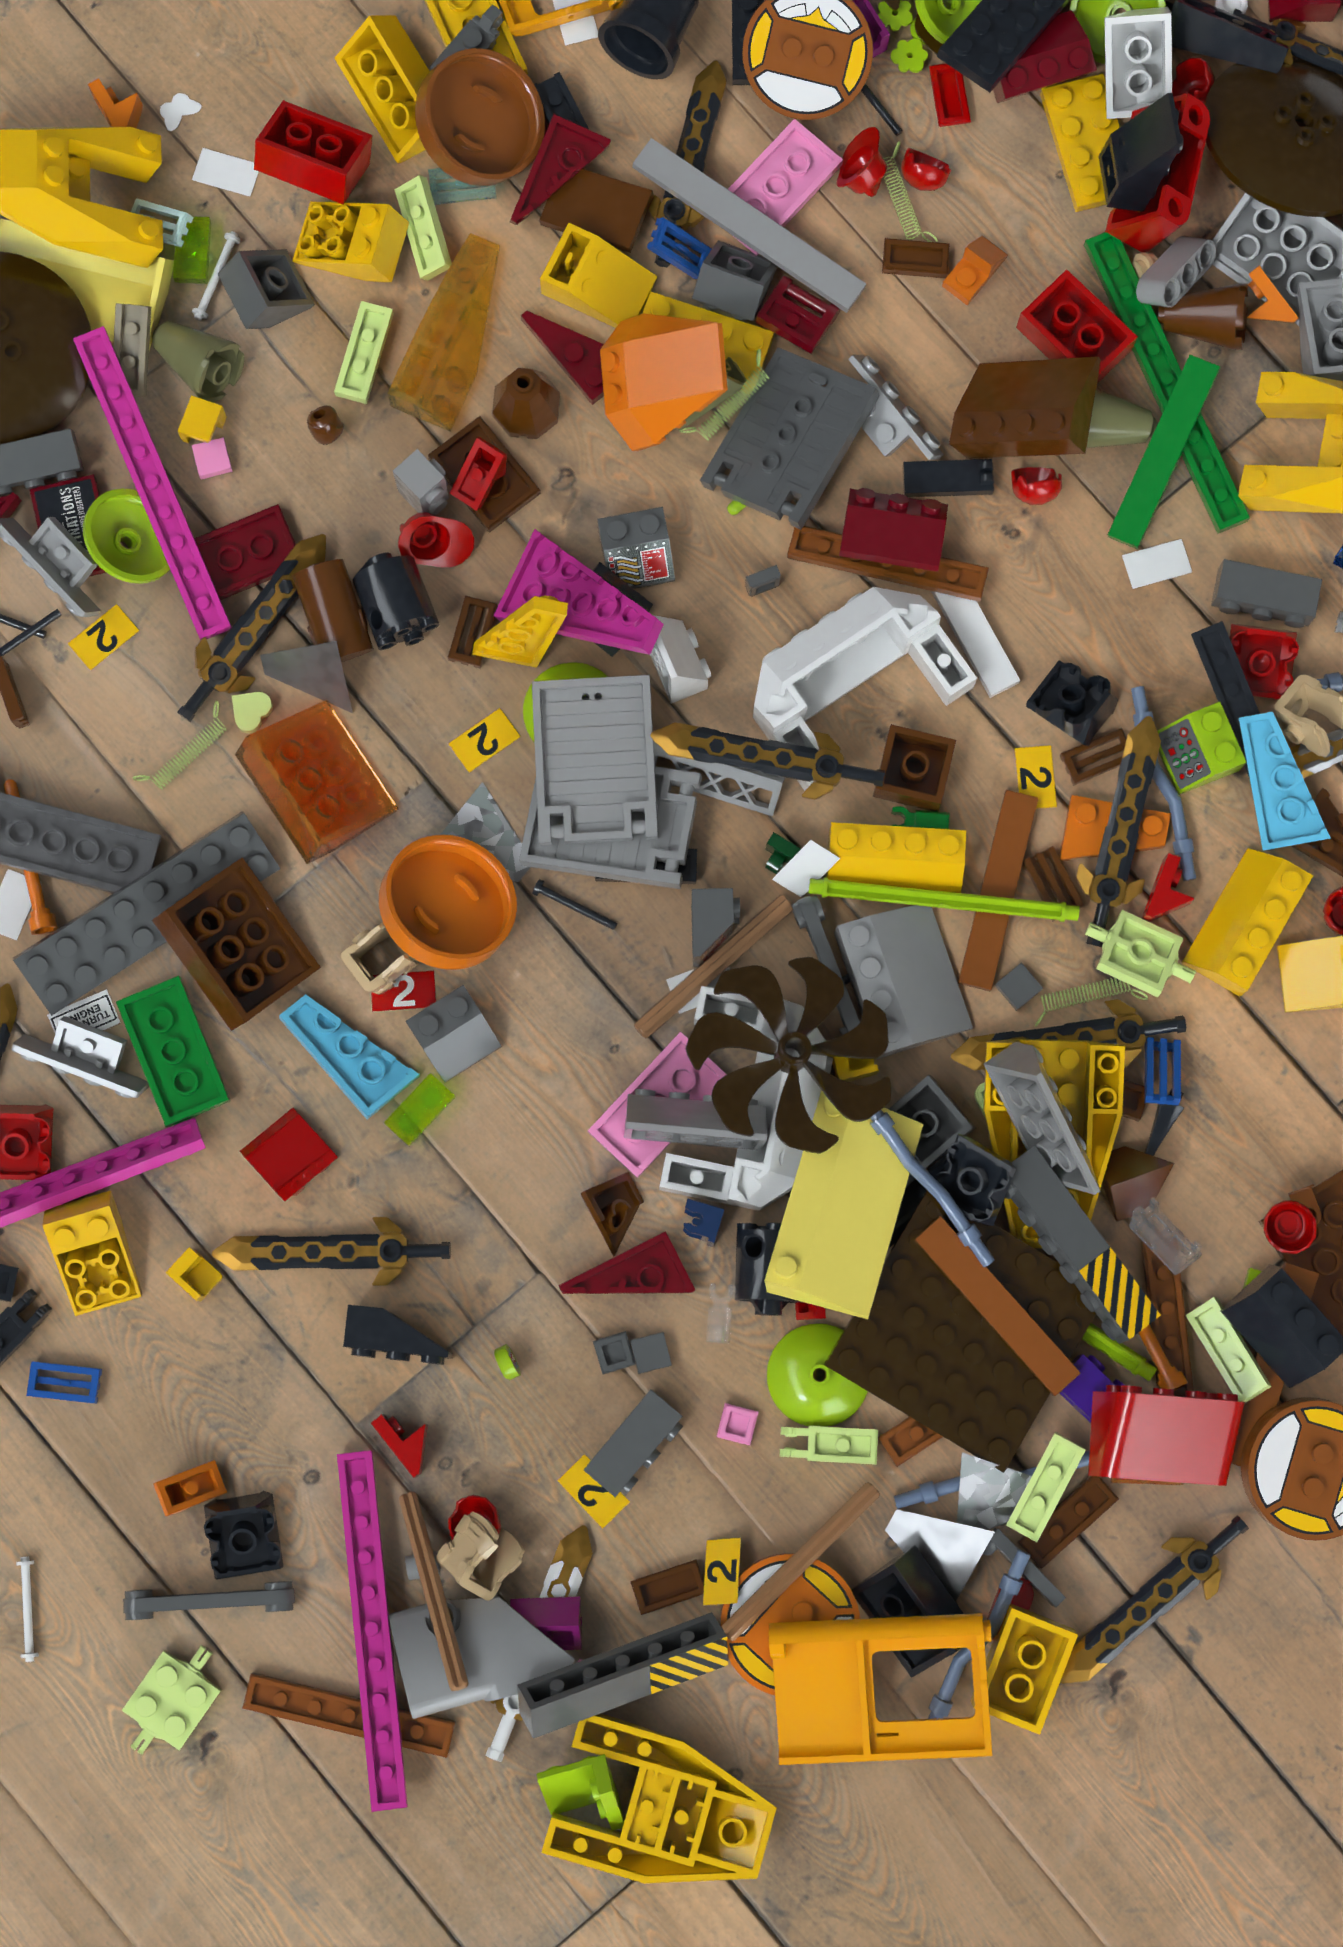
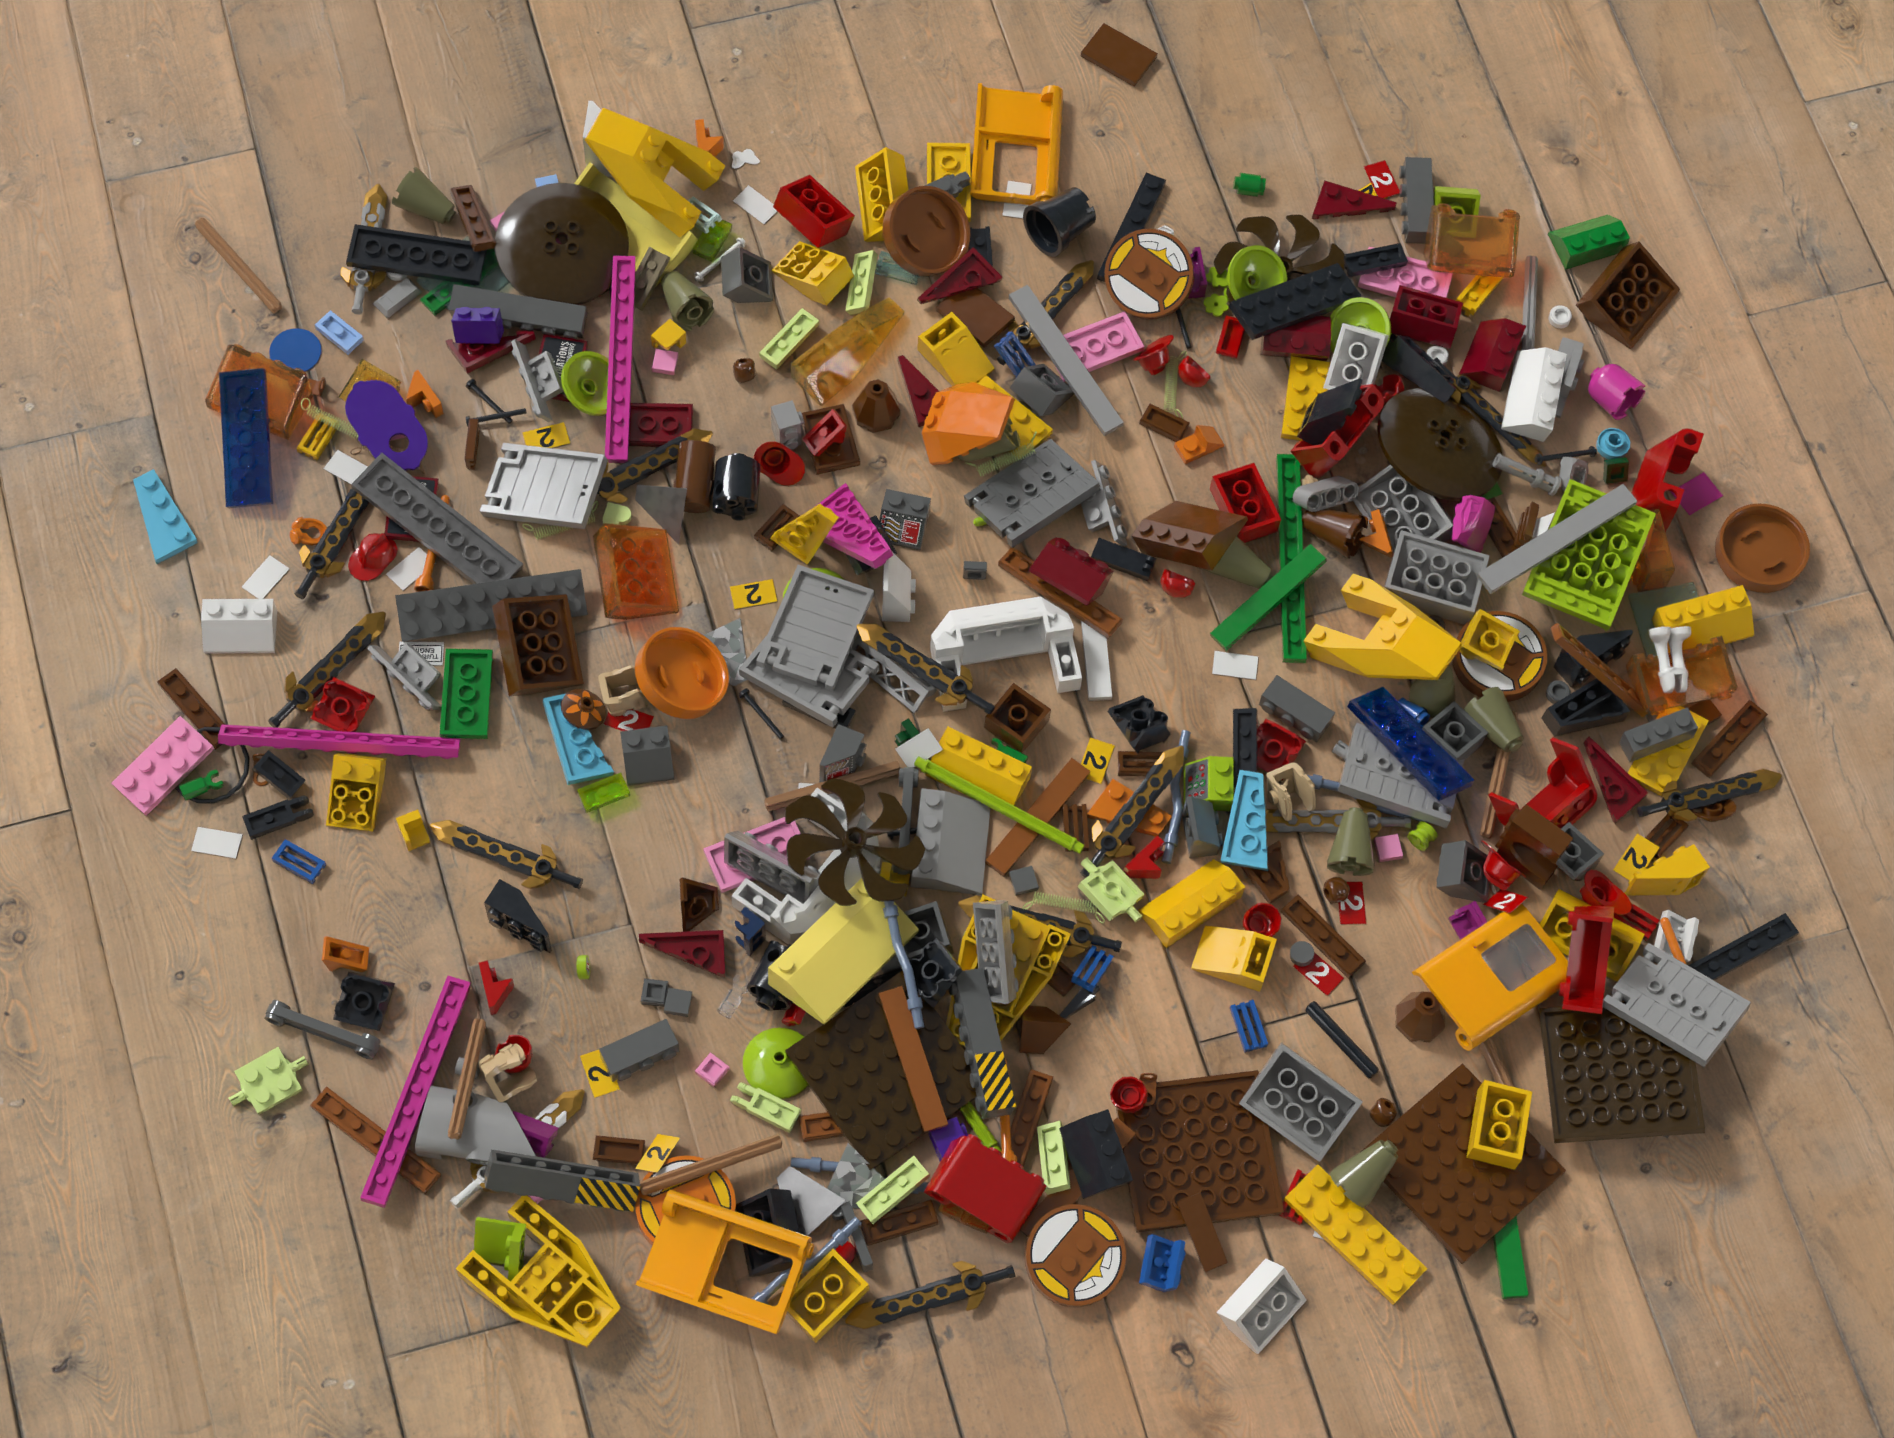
camera: 20 degrees right, 15 degrees down
(27, 1609) = (194, 1014): white axle -> none
(137, 712) = (544, 485): none -> door
(288, 1154) = (508, 785): red slope -> none
(337, 1017) = (578, 714): none -> reddish brown dish
(794, 321) = (1068, 428): dark red plate -> none
(1164, 1237) = (1044, 1069): clear hinge -> none
(1217, 816) = (1201, 828): none -> dark grey slope

